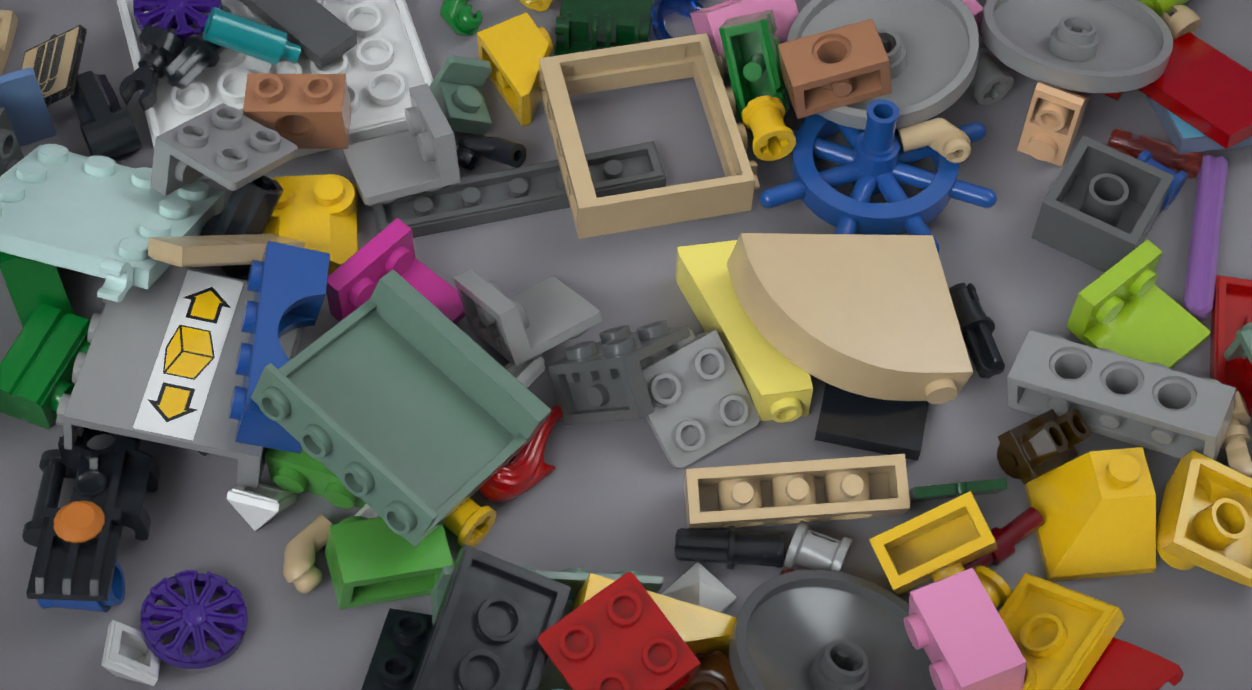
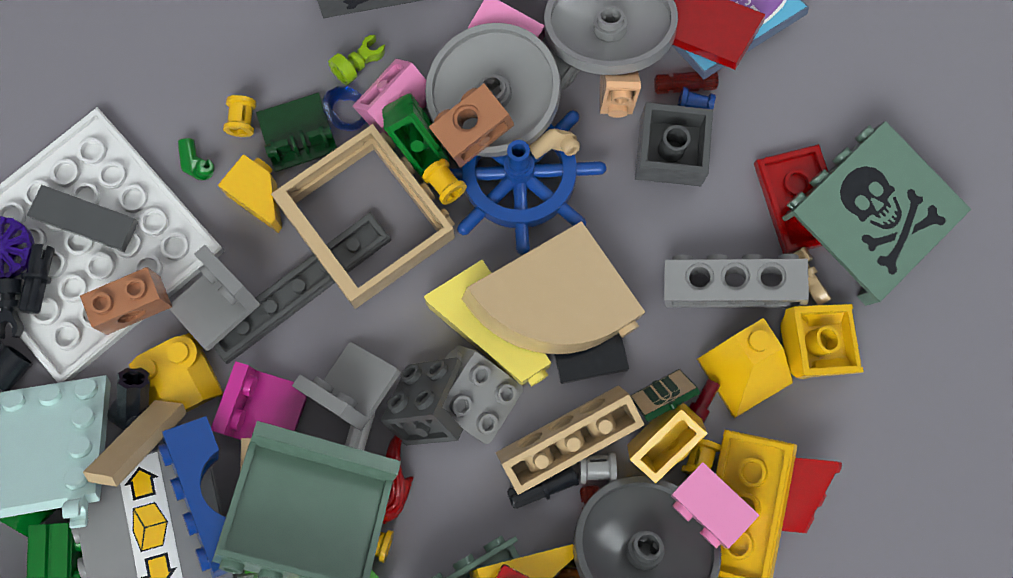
camera: 25 degrees left, 20 degrees up
(217, 145) = (93, 366): light grey bracket -> none
(249, 37) = (64, 257): teal cylinder -> none
(460, 94) = (229, 235): sand green bracket -> none
(492, 148) = (266, 263): black arm -> none
(701, 589) = (537, 526): white slope -> none
(976, 330) = (628, 266): black axle -> none
(1041, 444) = (701, 336): dark brown hips -> none
(1134, 315) = (724, 218): lime bracket -> none
(1205, 237) = (739, 132): medium lavender axle -> none

